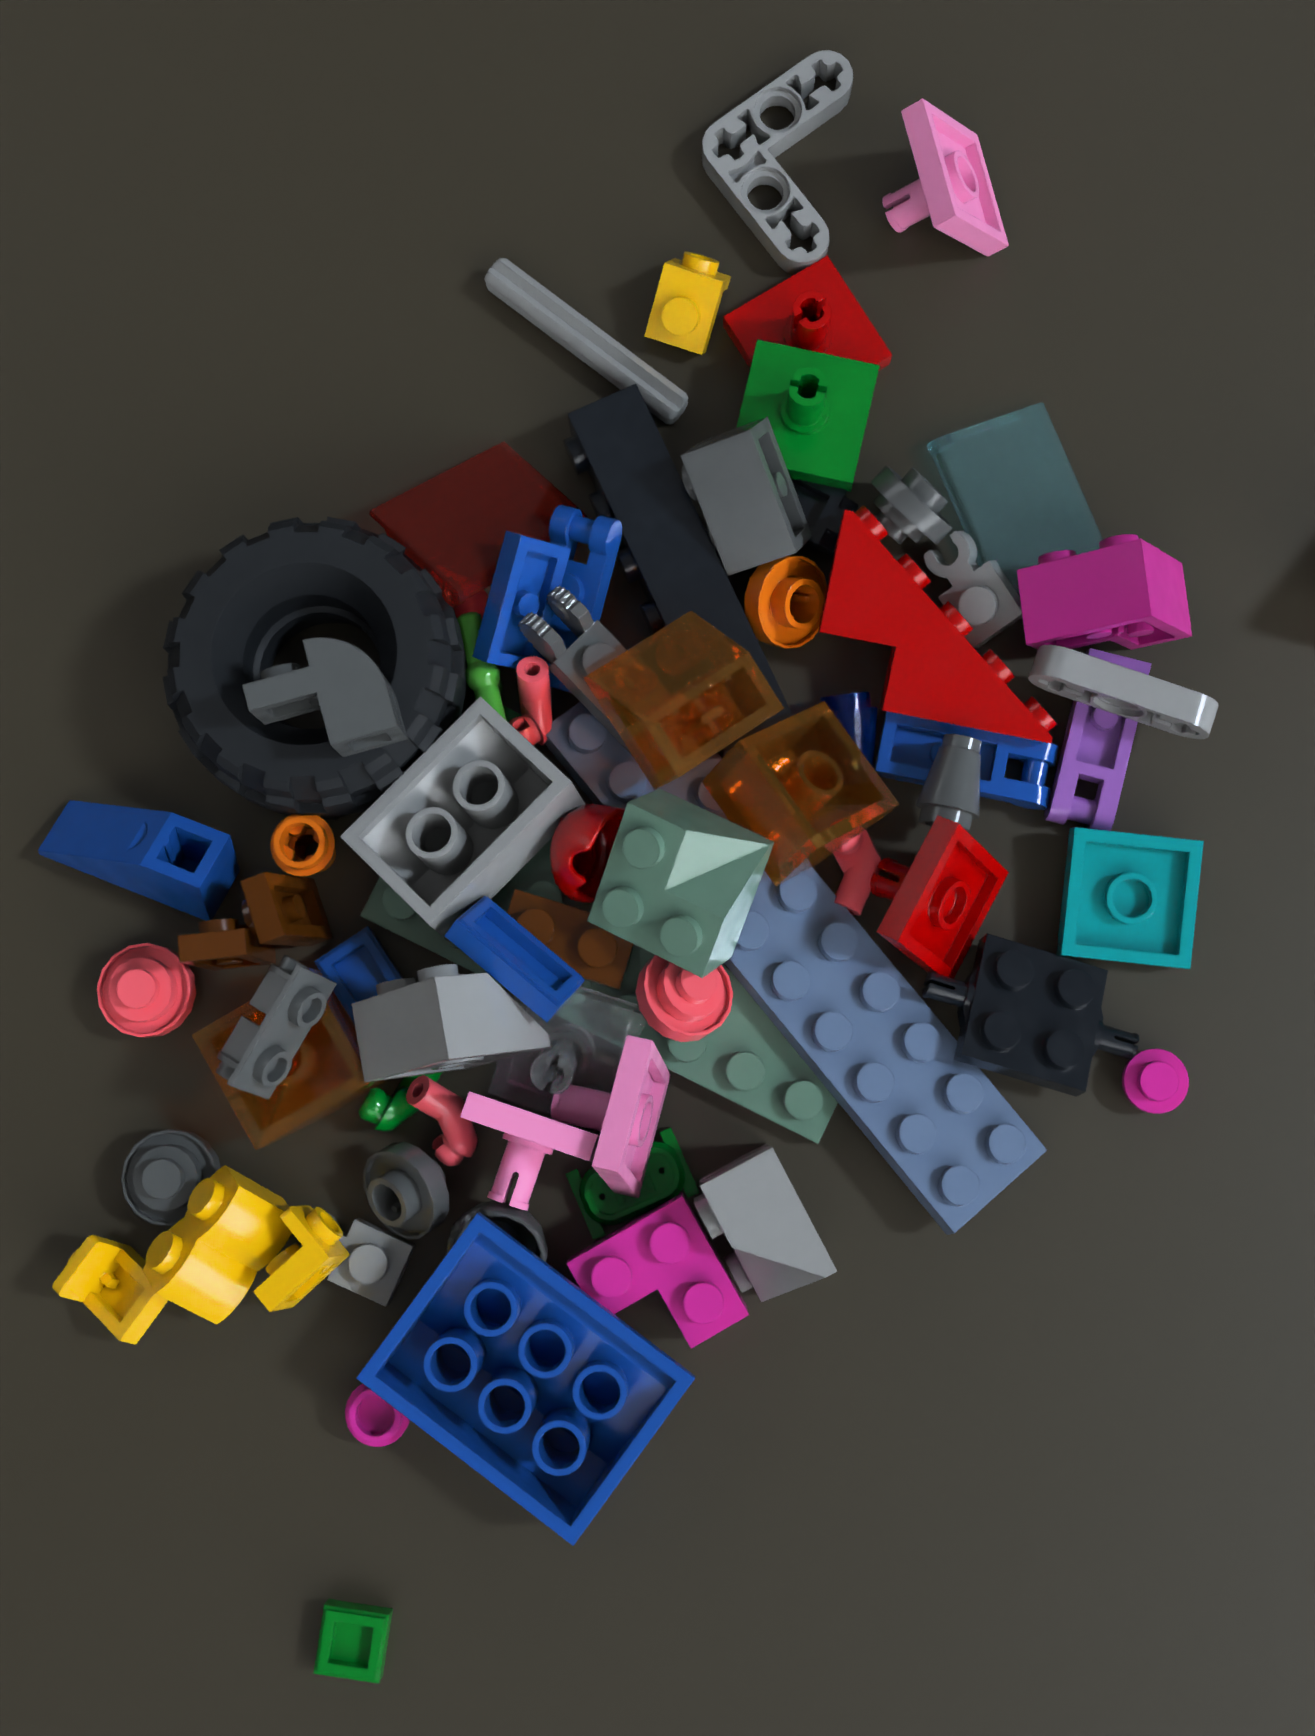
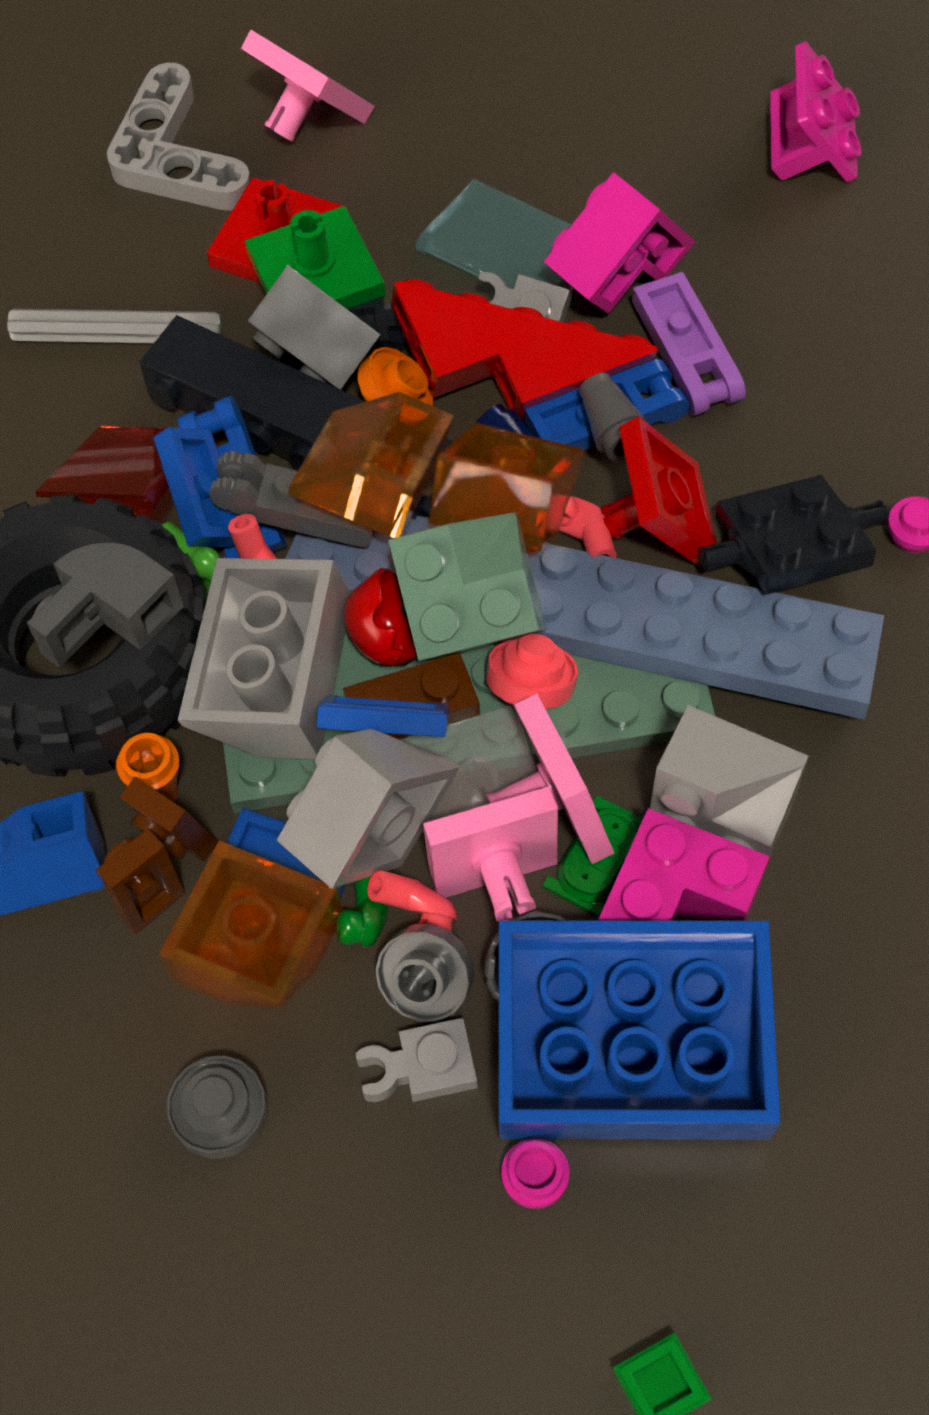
camera: 40 degrees left, 20 degrees down
(112, 1286) = (231, 1228): yellow bracket -> none
(146, 990) = (90, 976): coral plate -> none
(218, 1245) = (299, 1120): yellow brick -> none
(262, 1055) = (226, 861): dark grey hinge -> none
(301, 1269) = (384, 1087): yellow bracket -> none
(687, 302) = (173, 259): yellow bracket -> none
(910, 506) = (439, 267): dark grey plate -> none
(1123, 691) = (711, 283): light grey beam -> none
(1130, 897) = (795, 419): teal plate -> none

